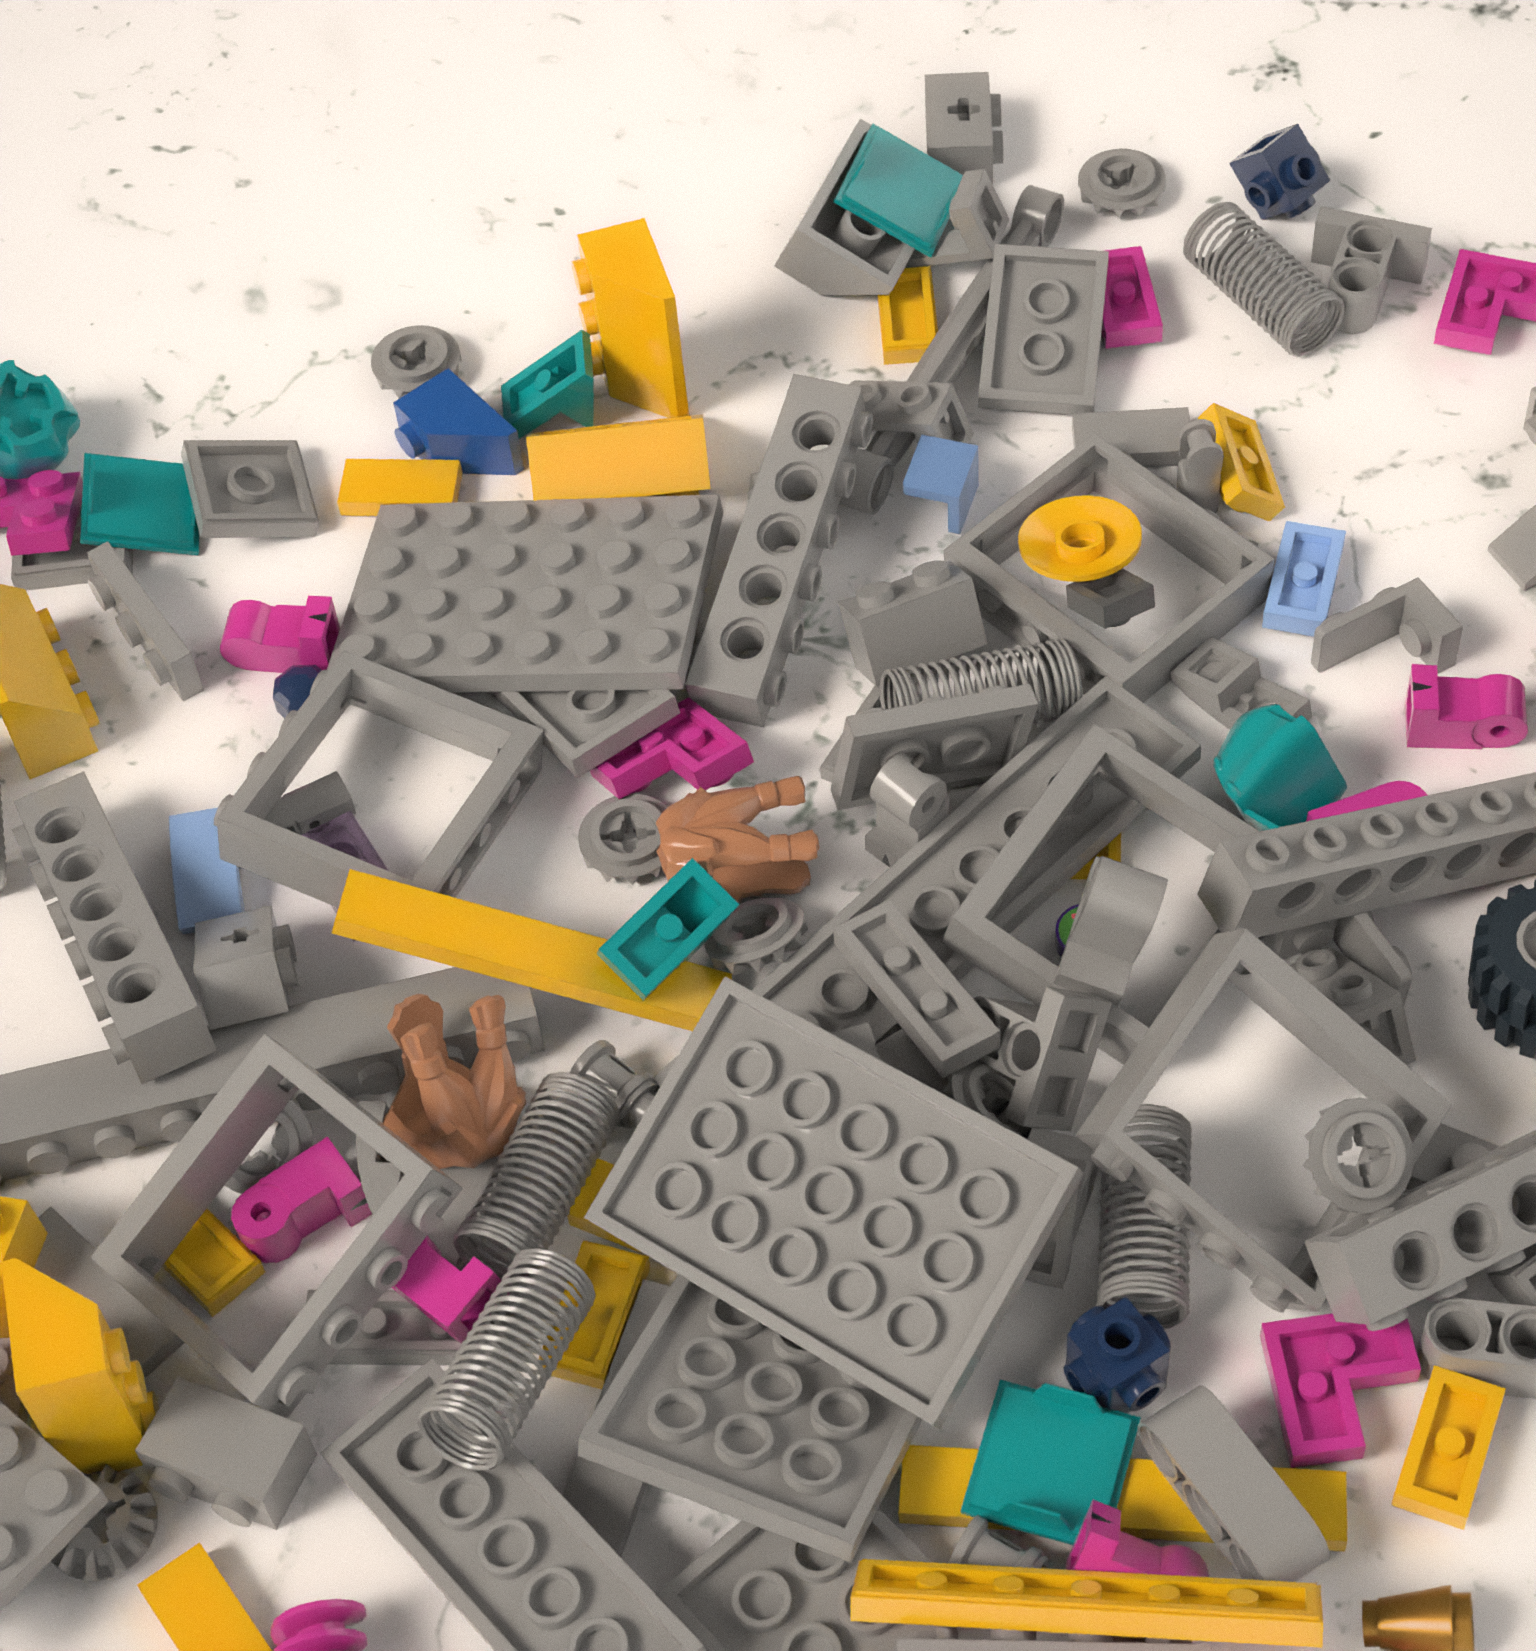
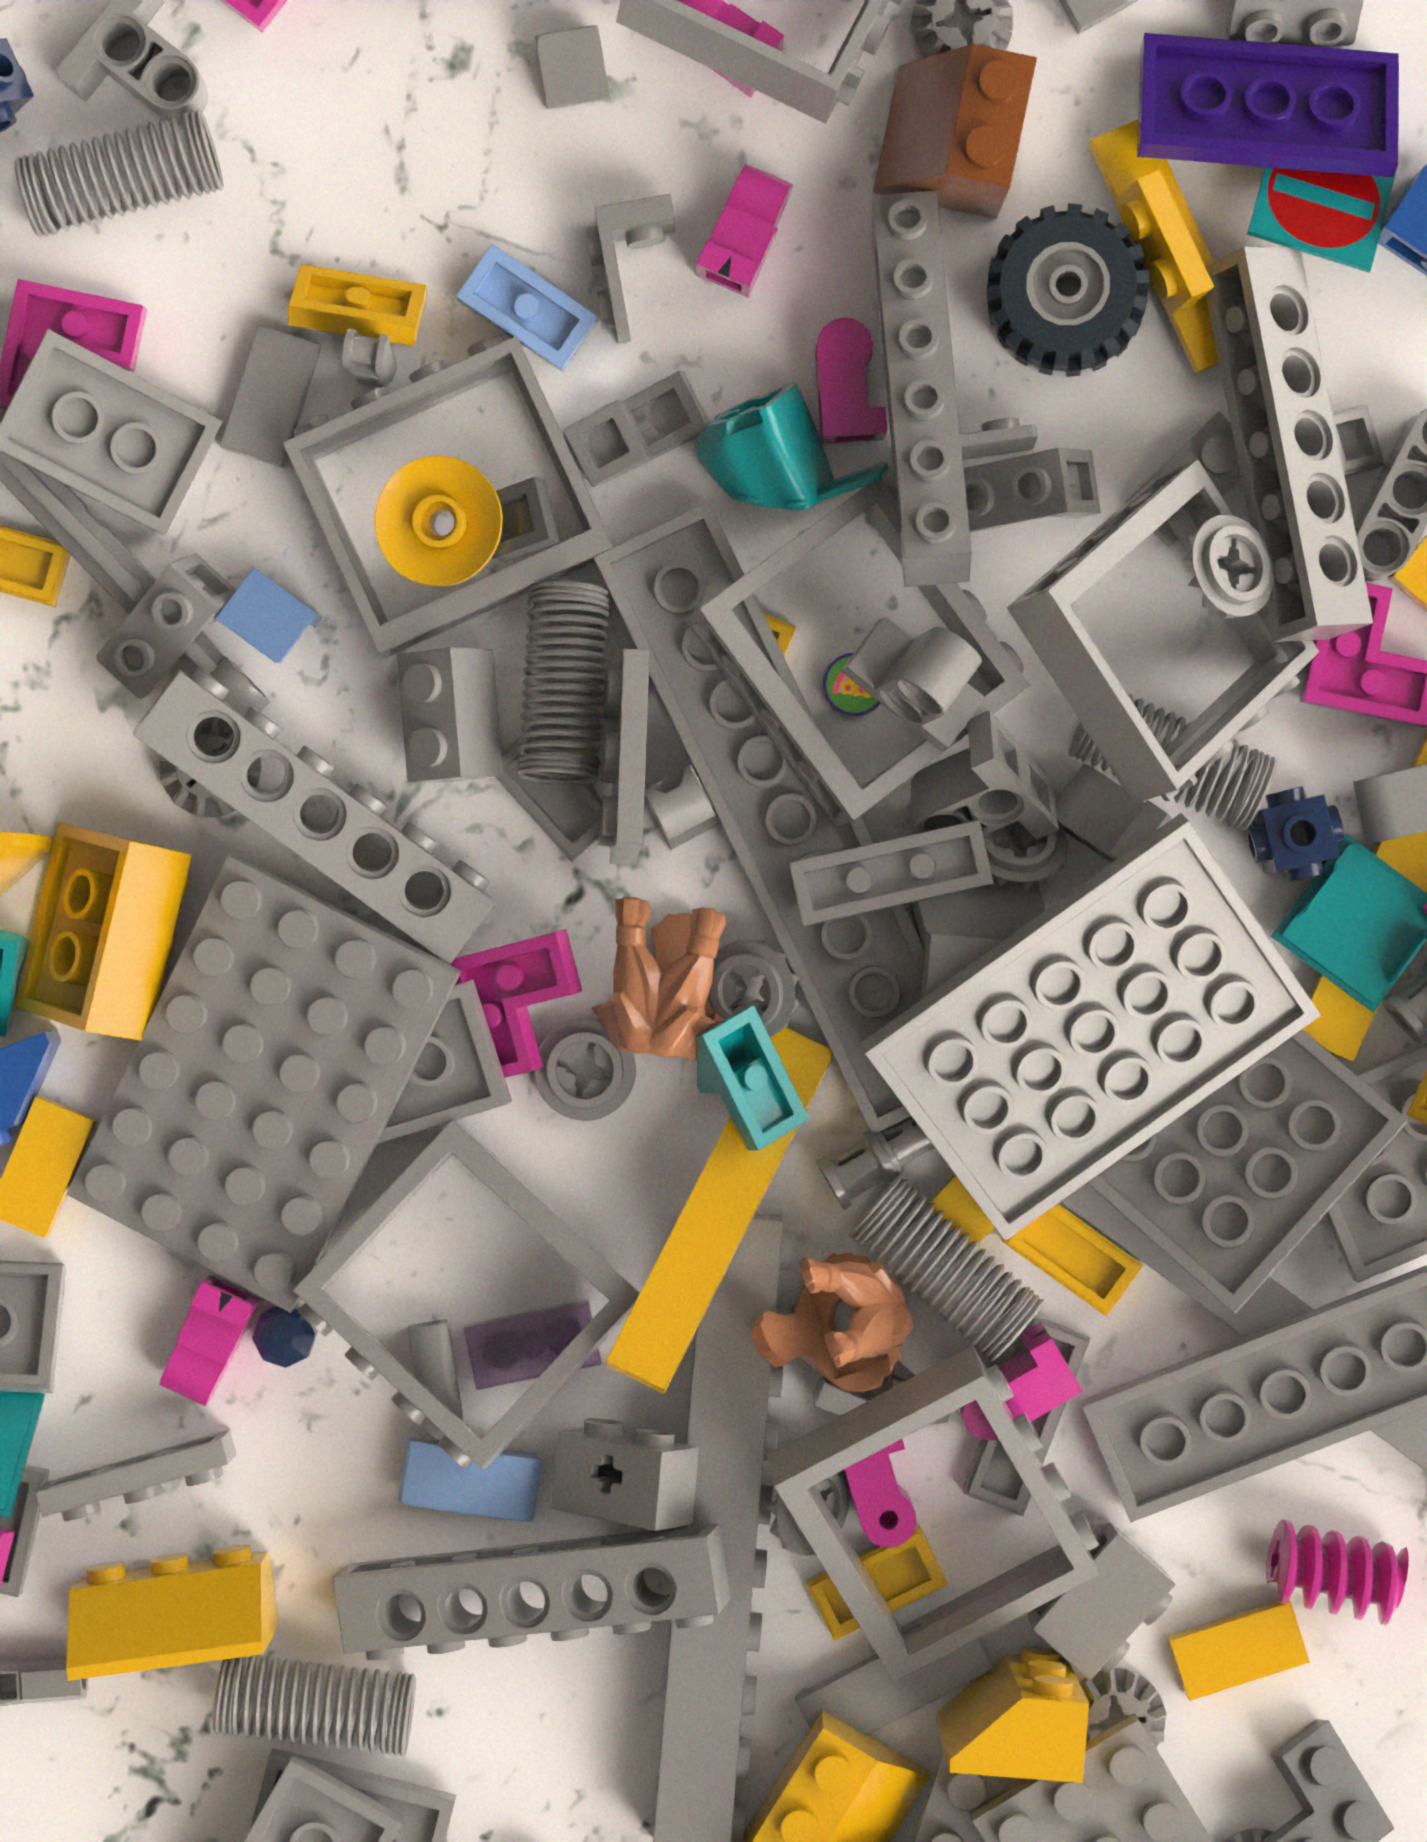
camera: 70 degrees left, 35 degrees up
(534, 1306) = (1064, 1298): light grey piece -> none

